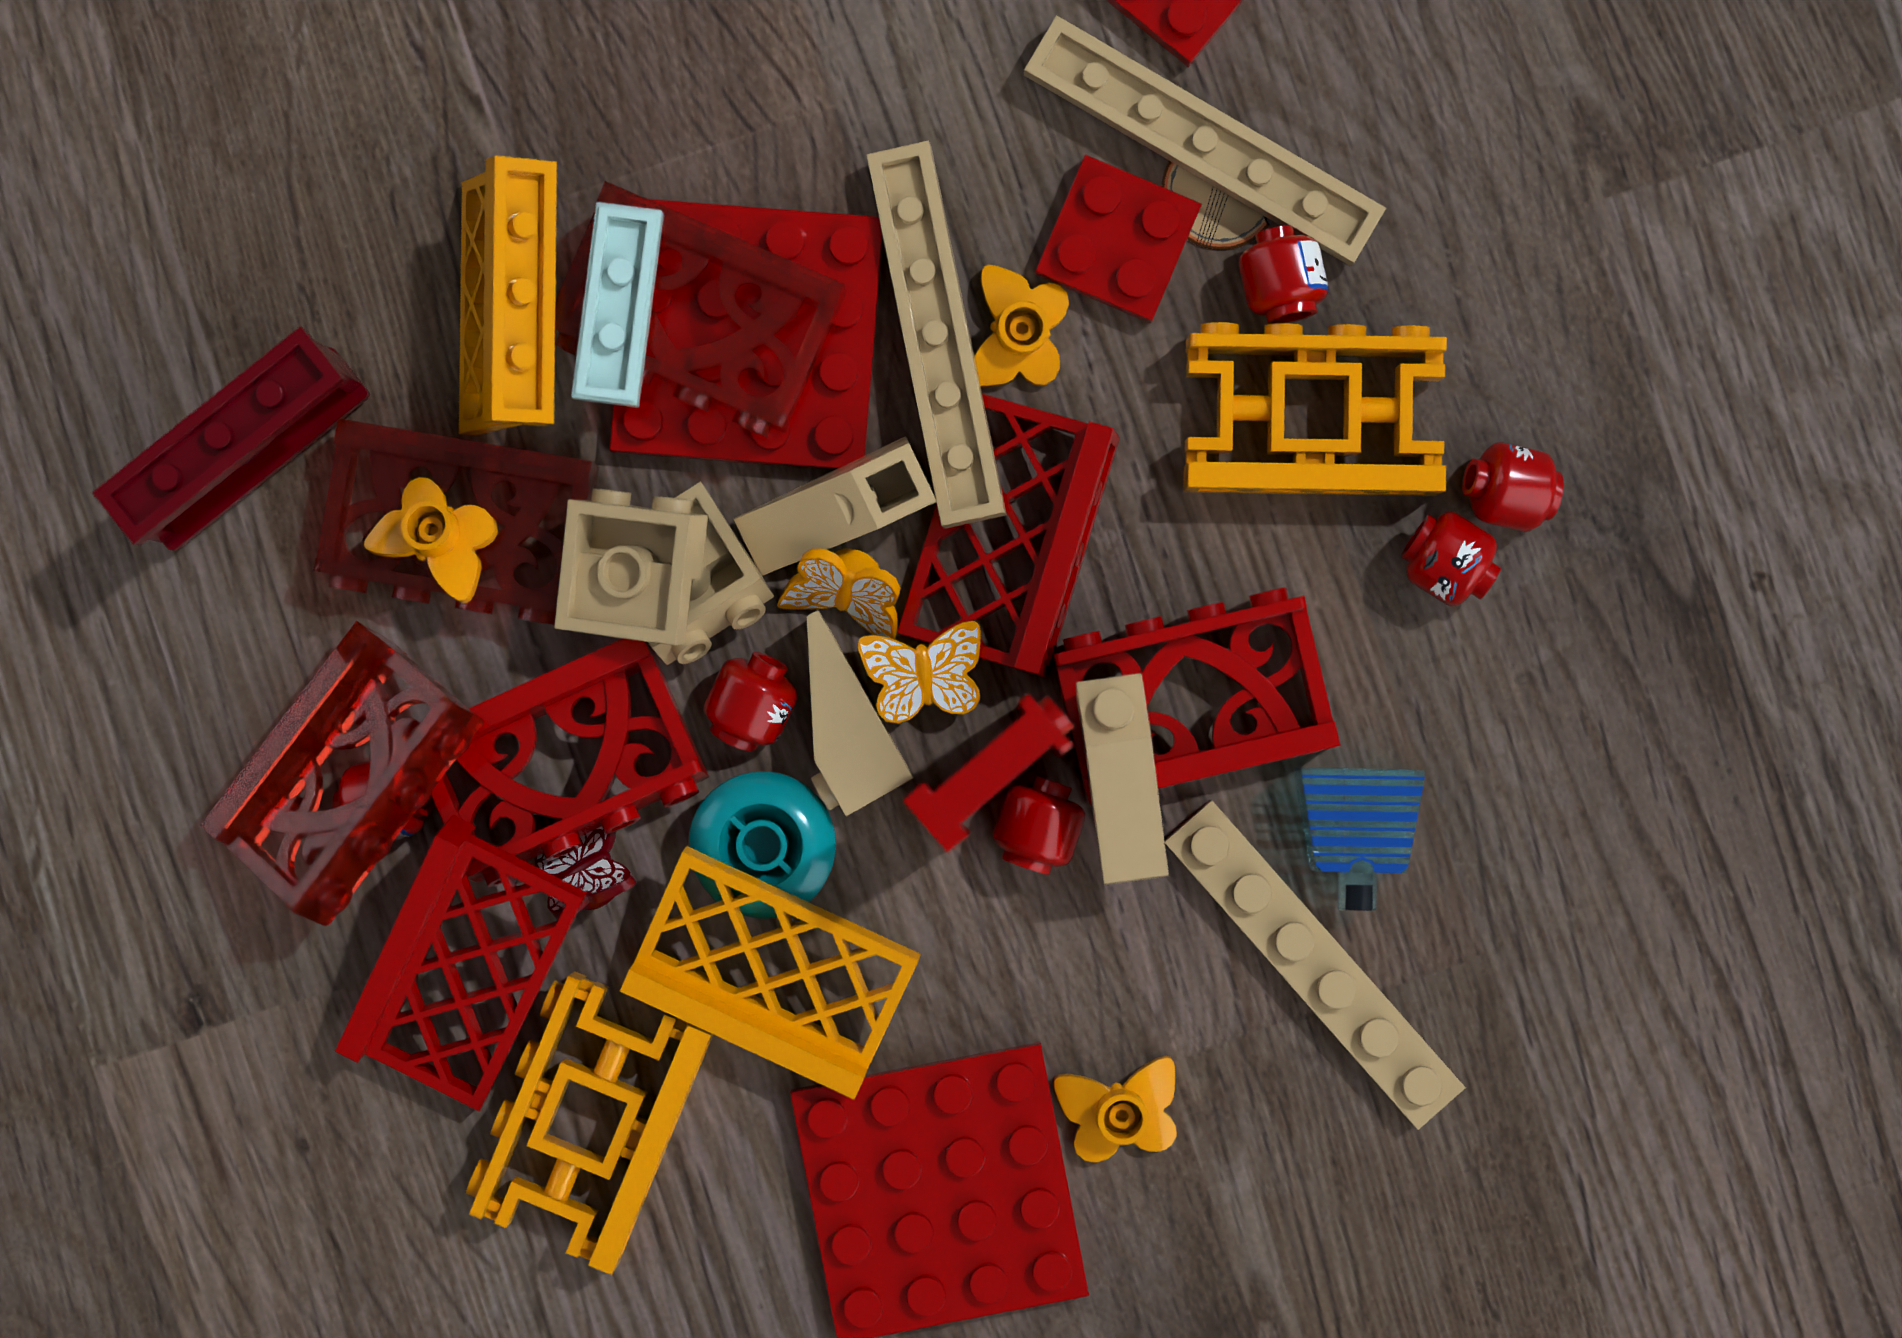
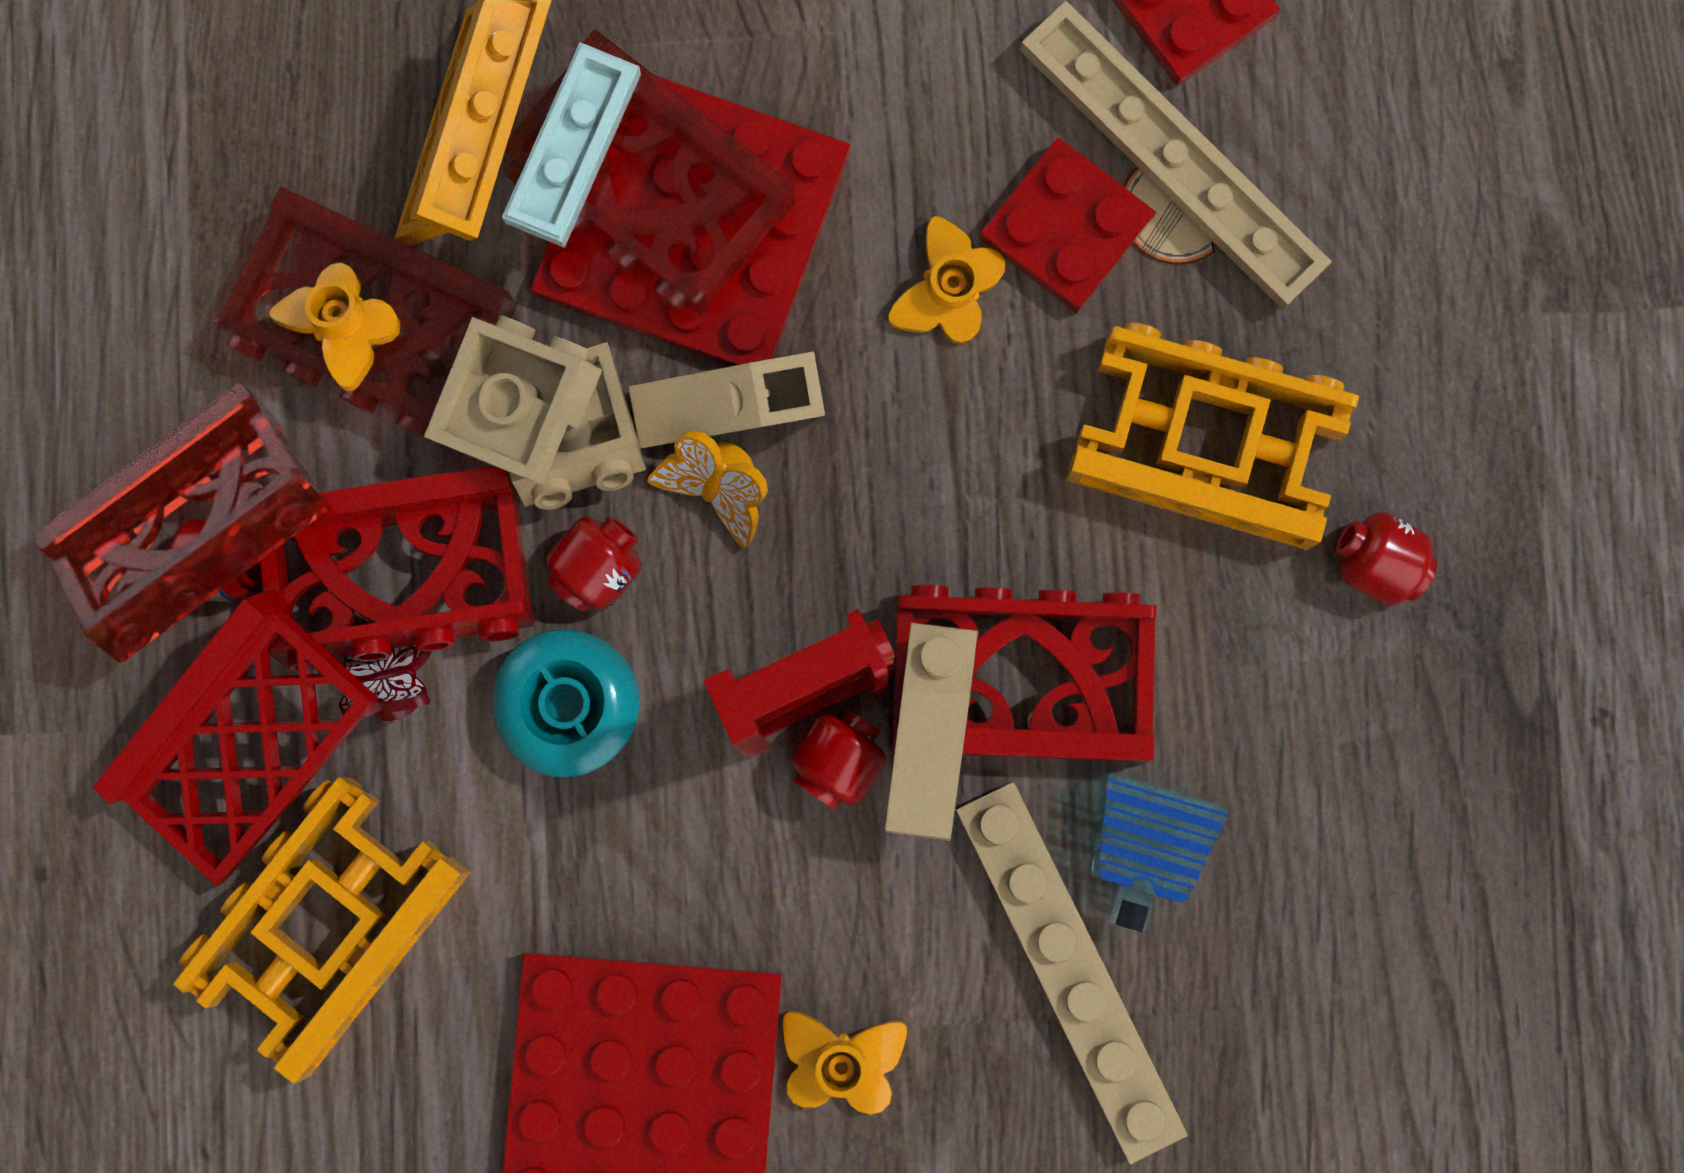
camera: 20 degrees right, 5 degrees down
(232, 442) = (169, 177): dark red fence -> none
(739, 1014) = (500, 868): light orange fence -> none
(849, 738) = (678, 617): tan slope -> none
(925, 673) = (768, 582): animal -> none
(936, 335) = (869, 266): tan plate -> none
(1061, 550) = (935, 498): red fence -> none
(1283, 275) = (1216, 298): red head -> none
(1451, 558) = (1308, 611): red head -> none

